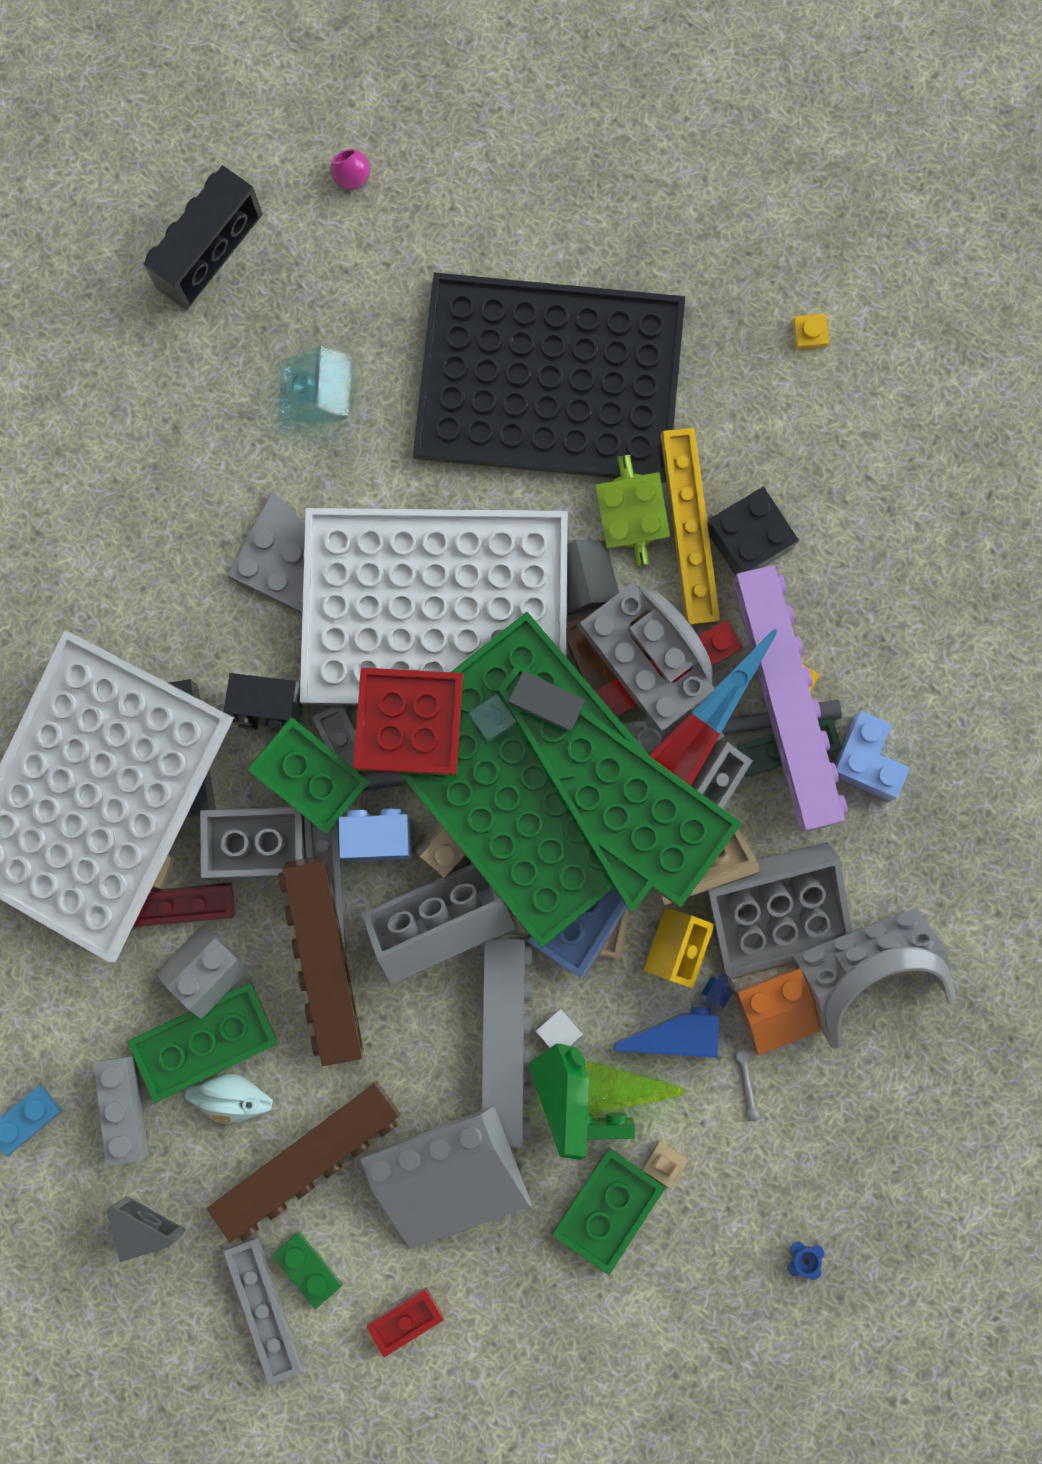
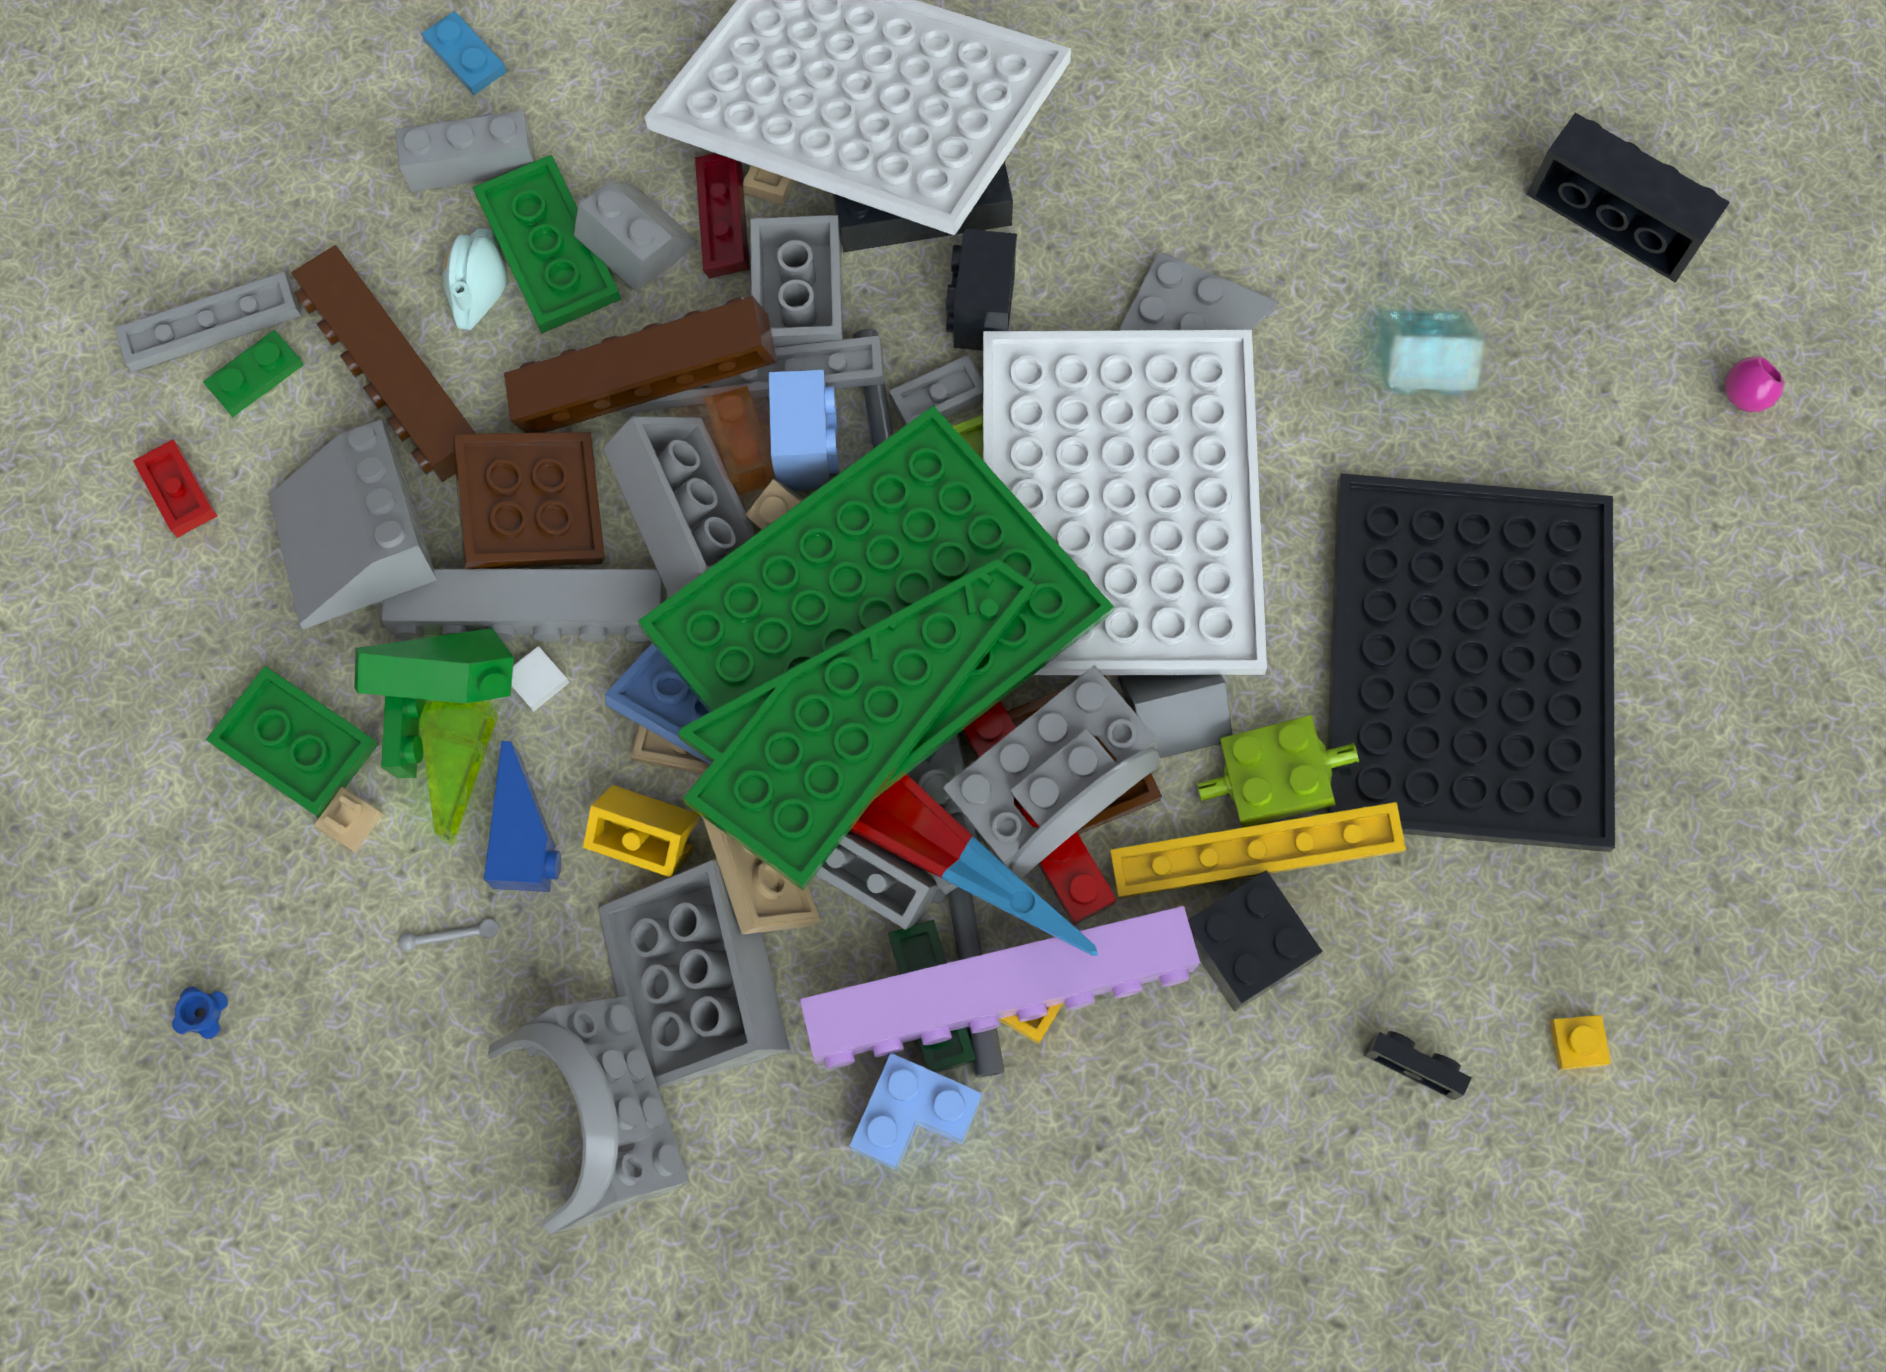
camera: 90 degrees right, 10 degrees down
(140, 1229) = (318, 170): dark grey slope -> none
(308, 775) = (881, 333): green plate -> none
(378, 884) = (740, 440): none -> clear orange brick
(408, 721) = (951, 447): red plate -> none
(424, 1043) = (527, 499): none -> reddish brown plate
(492, 718) = (955, 552): clear light blue plate -> none
(546, 701) = (977, 617): dark grey tile -> none
(717, 991) = (575, 884): clear blue slope -> none
(778, 1010) = (547, 966): orange slope -> none
(834, 421) = (1434, 1072): none -> black plate

